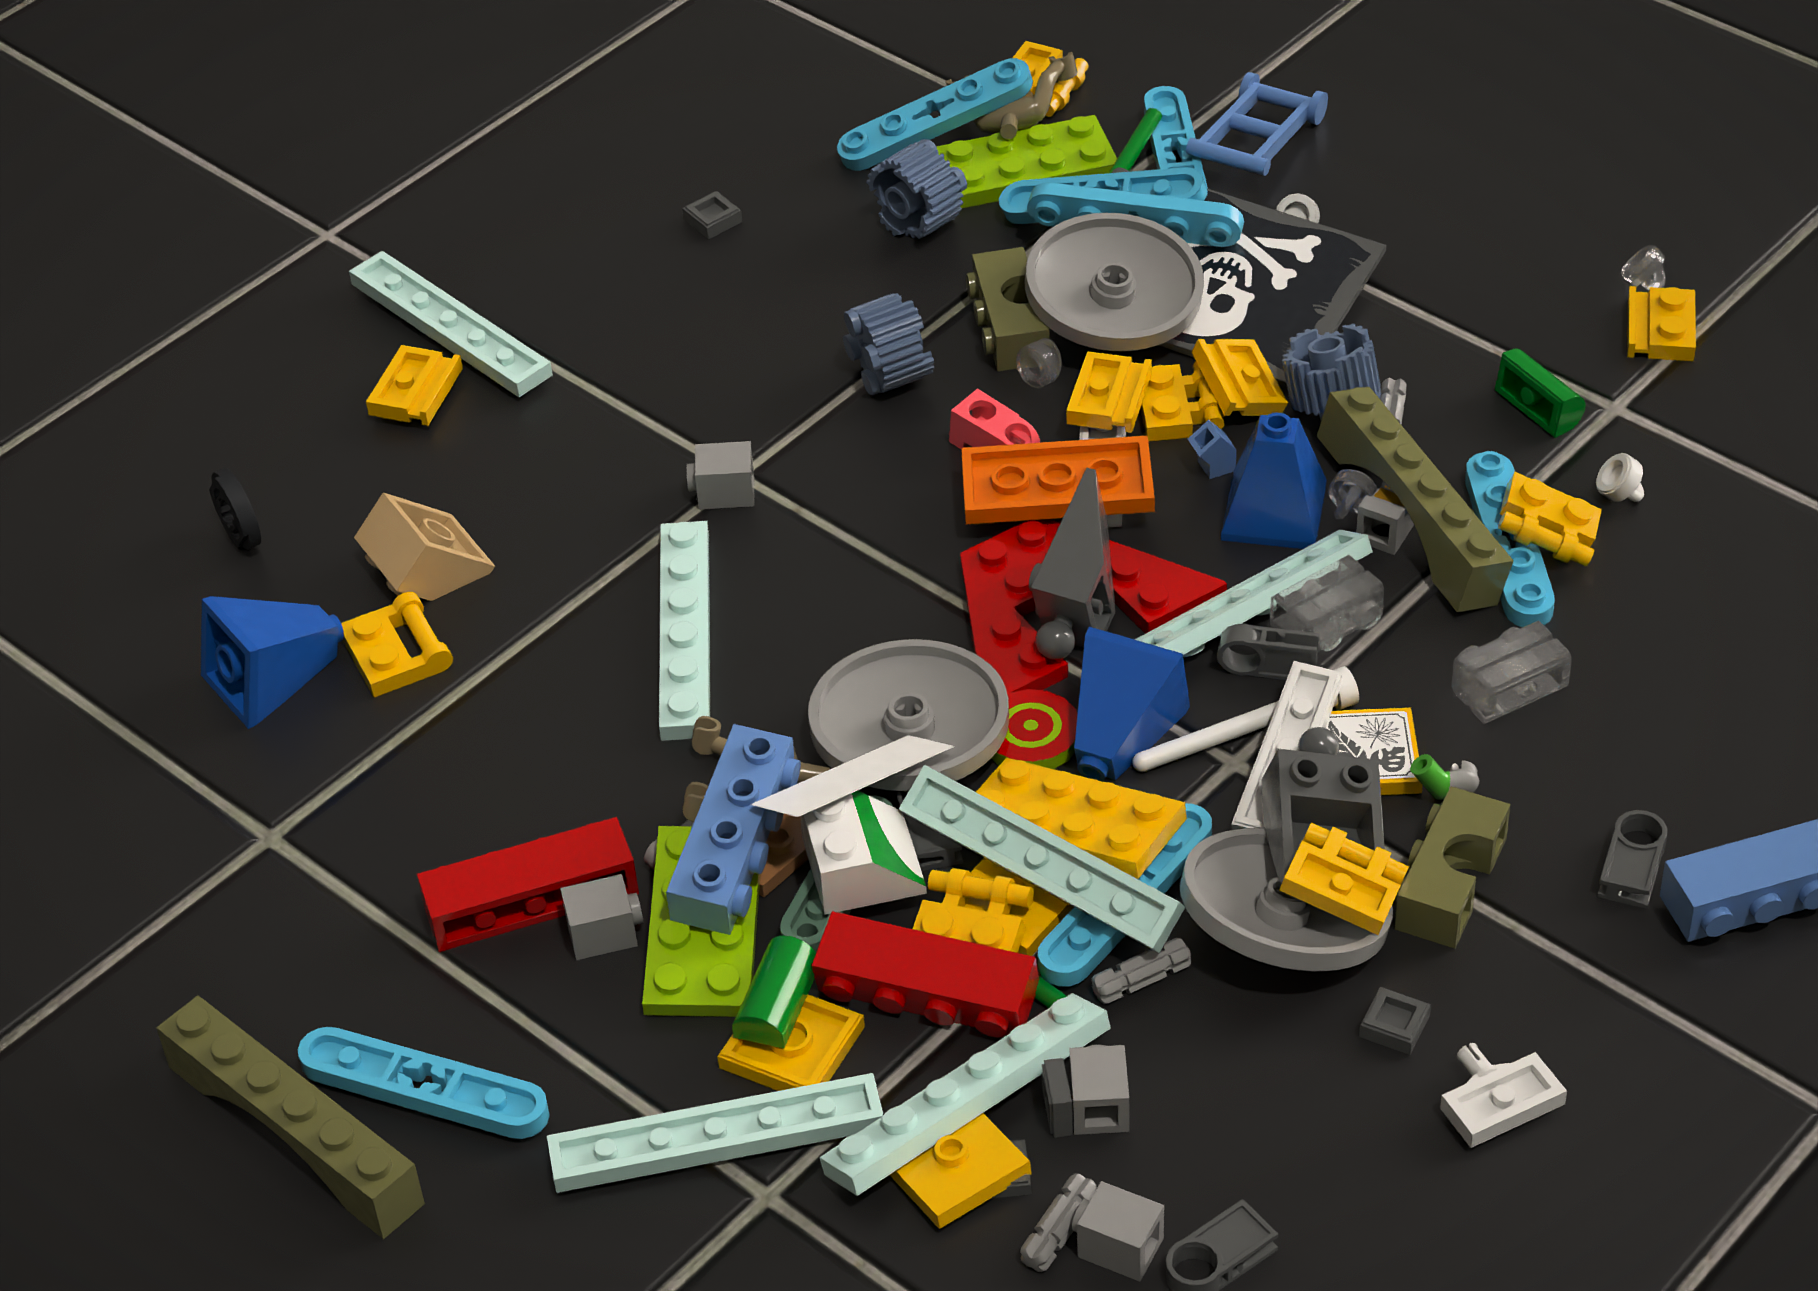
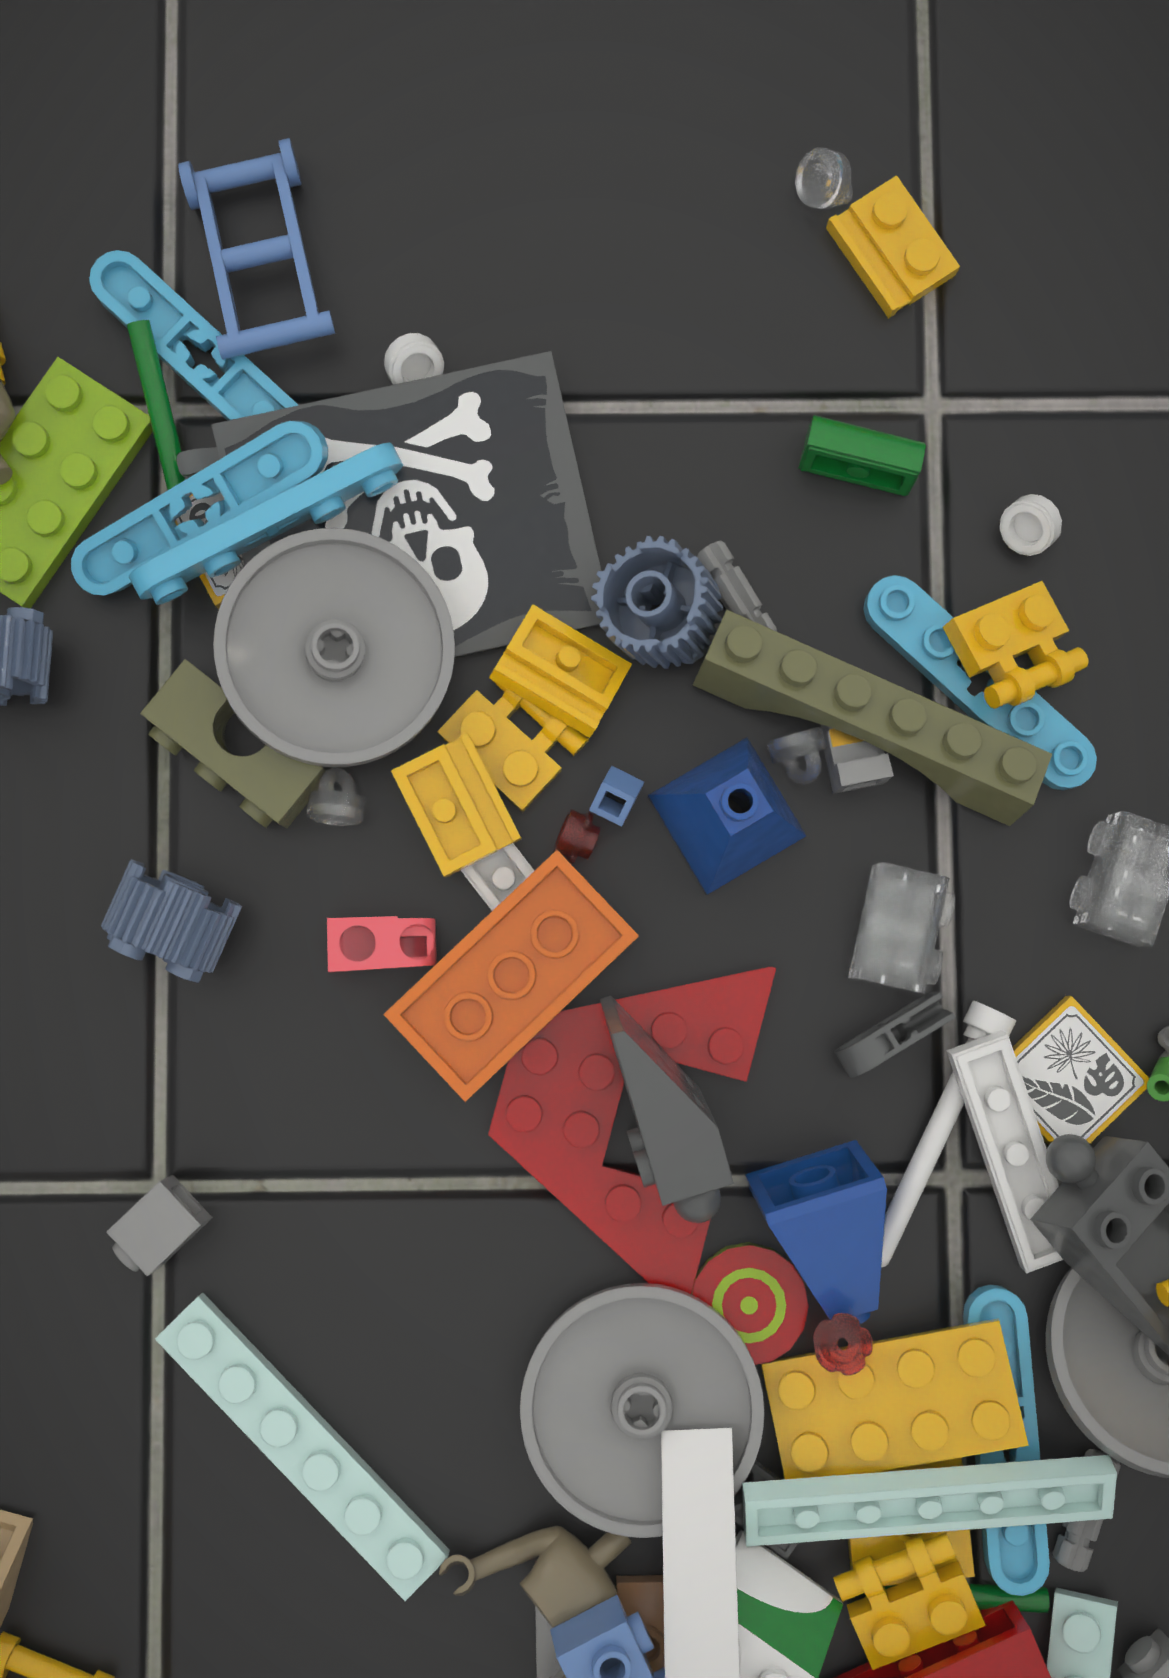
camera: 50 degrees left, 40 degrees up
(1068, 748) = (826, 1344): none -> clear red plate
(1168, 457) = (577, 836): none -> clear red plate
(1253, 596) = (815, 987): light aqua plate -> none

